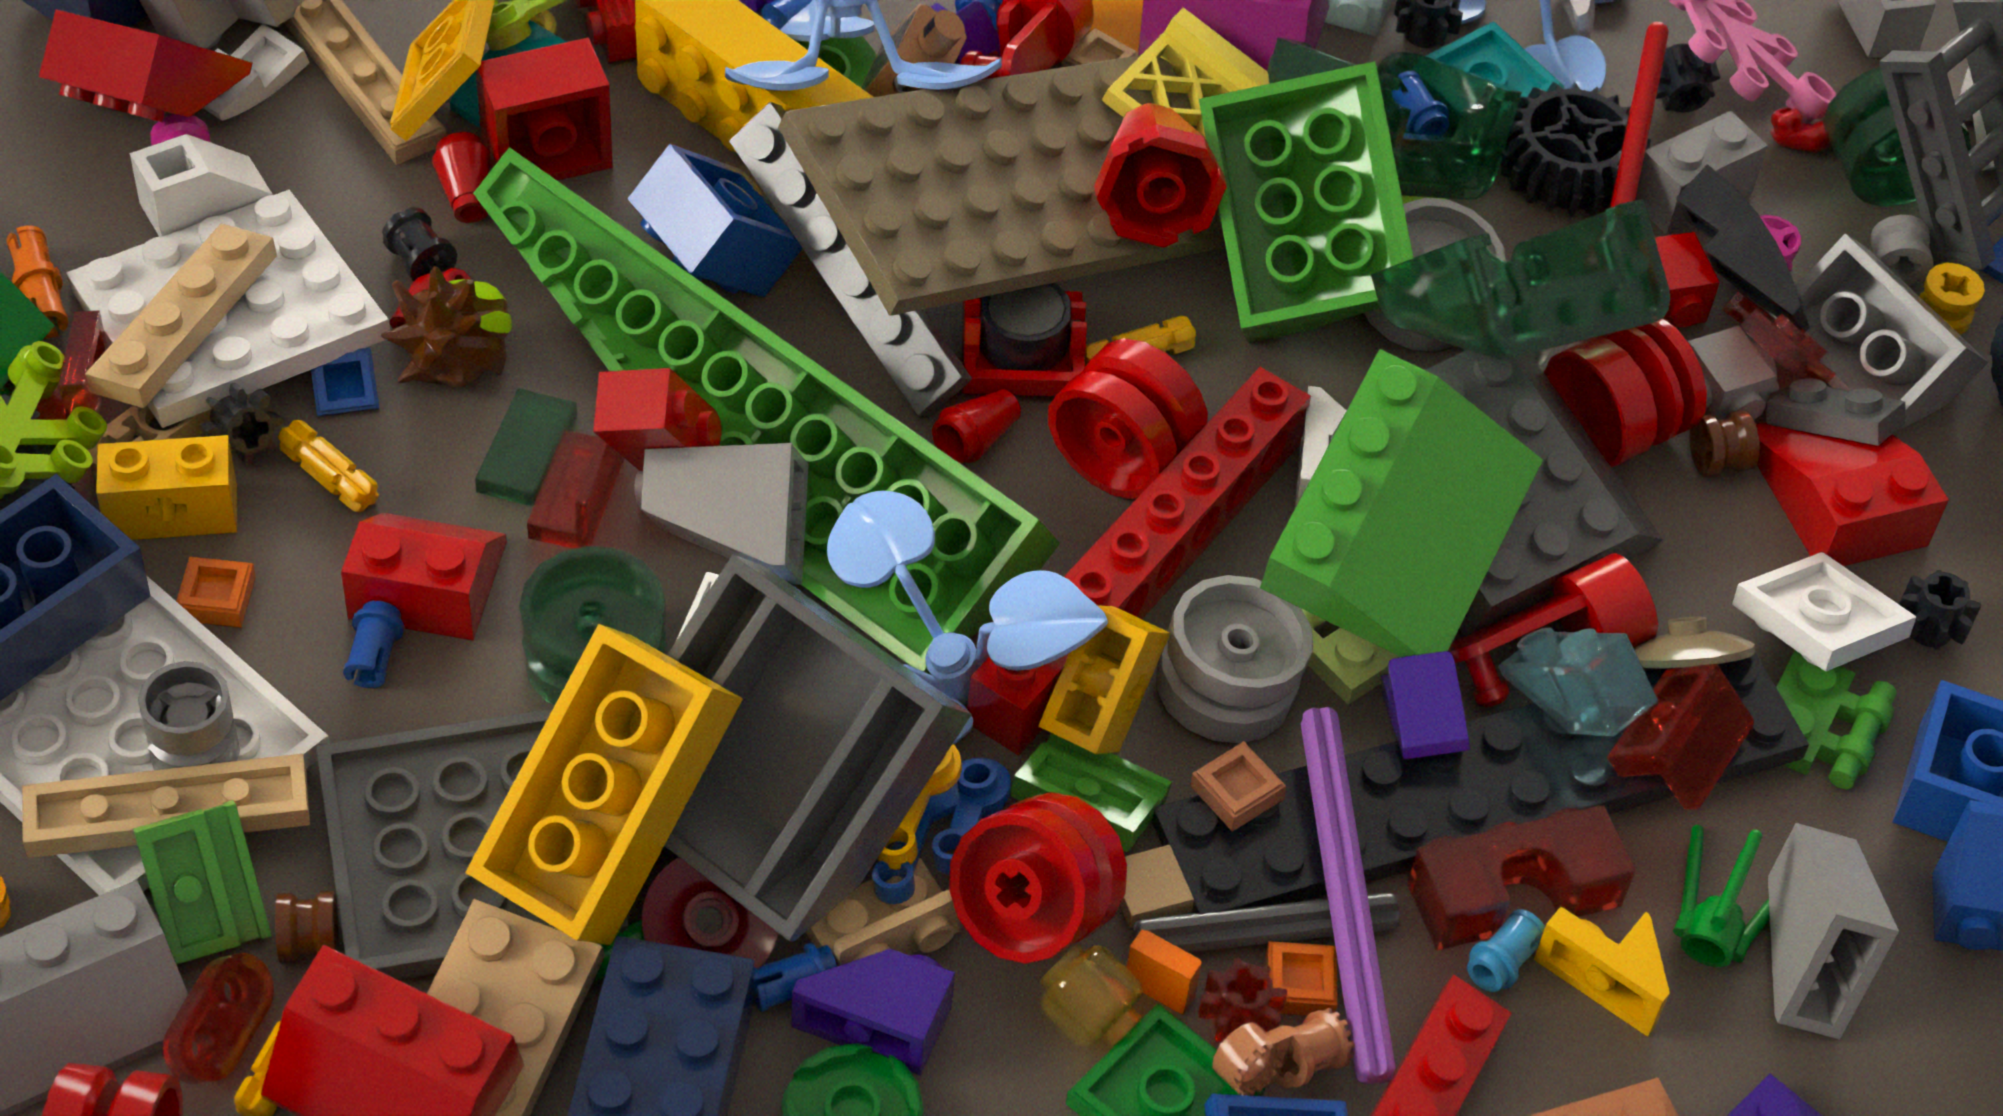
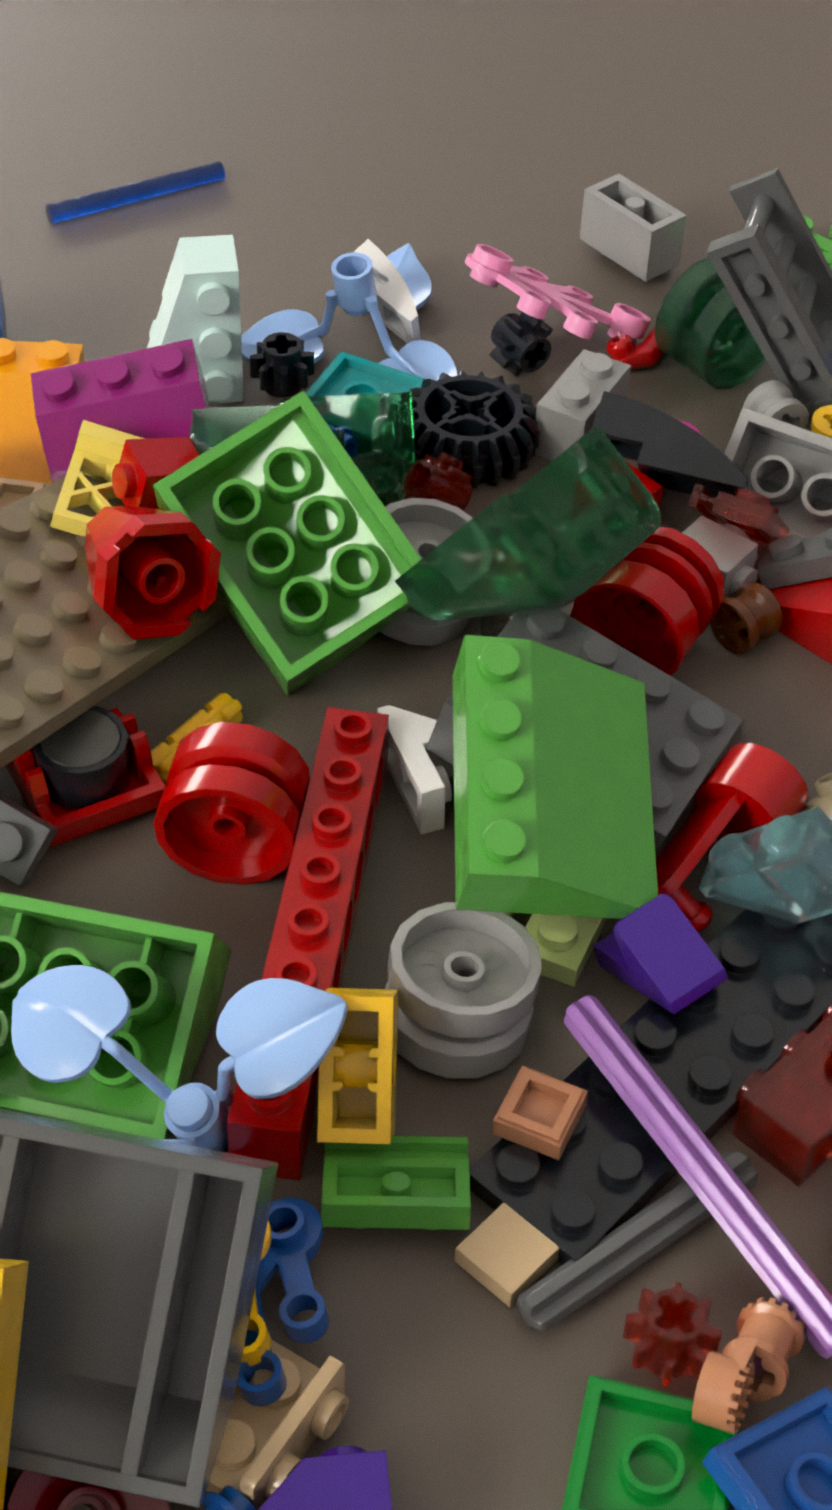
camera: 25 degrees left, 5 degrees down
(975, 425) = (82, 870): red cone -> none
(1037, 877) = (414, 1304): red wheel -> none
(1091, 996) = (526, 1402): clear yellow head -> none
(1164, 970) = (578, 1338): orange tile -> none
(1216, 73) = (146, 463): none -> red brick
(1306, 973) = (705, 1270): orange tile -> none
(1504, 196) = (439, 480): none -> clear red gear
(1640, 114) = (521, 380): red piece -> none

